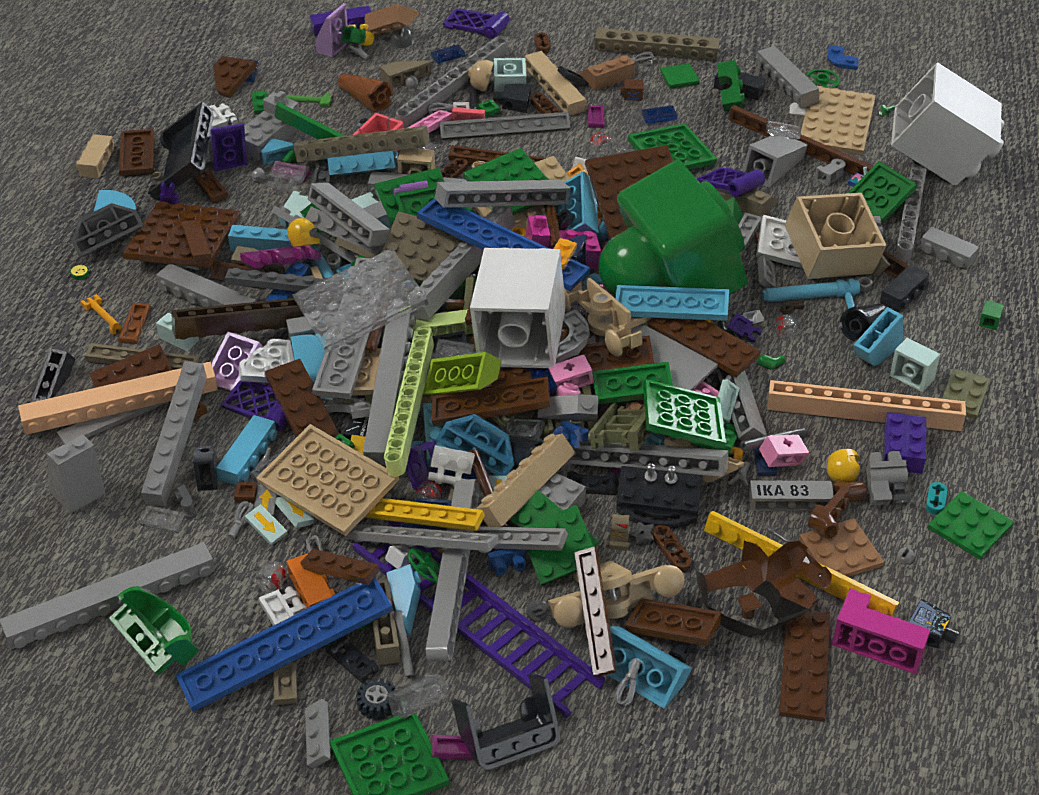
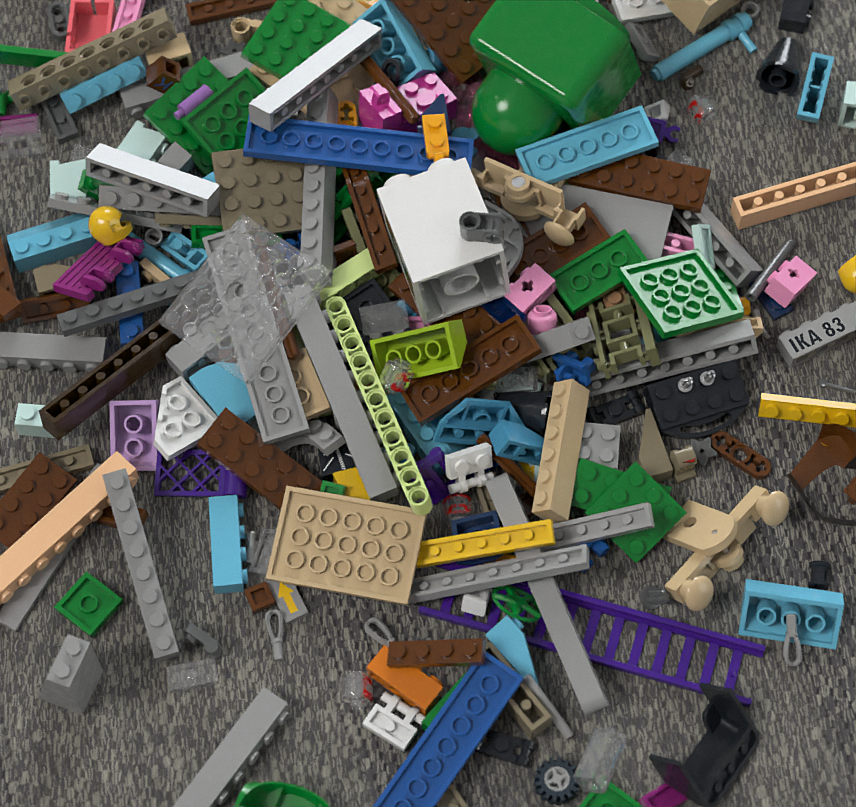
camera: 25 degrees left, 20 degrees up
(125, 449) = (88, 604): none -> green plate
(206, 458) = (196, 583): black torso -> none
(266, 525) = (309, 629): light aqua tile -> none
(296, 515) = (332, 601): light aqua tile -> none
(403, 167) = (162, 74): none -> reddish brown brick
(433, 384) = (396, 376): none -> clear head
(453, 168) = (202, 38): reddish brown beam -> none
(495, 462) = (516, 442): none -> dark azure slope
(539, 287) = (483, 228): none -> dark grey piece
(595, 612) = (725, 582): plate -> none
(600, 516) = (652, 451): none -> dark tan slope
(674, 622) = (797, 548): reddish brown plate -> none
(769, 362) = (711, 163): green arm -> none

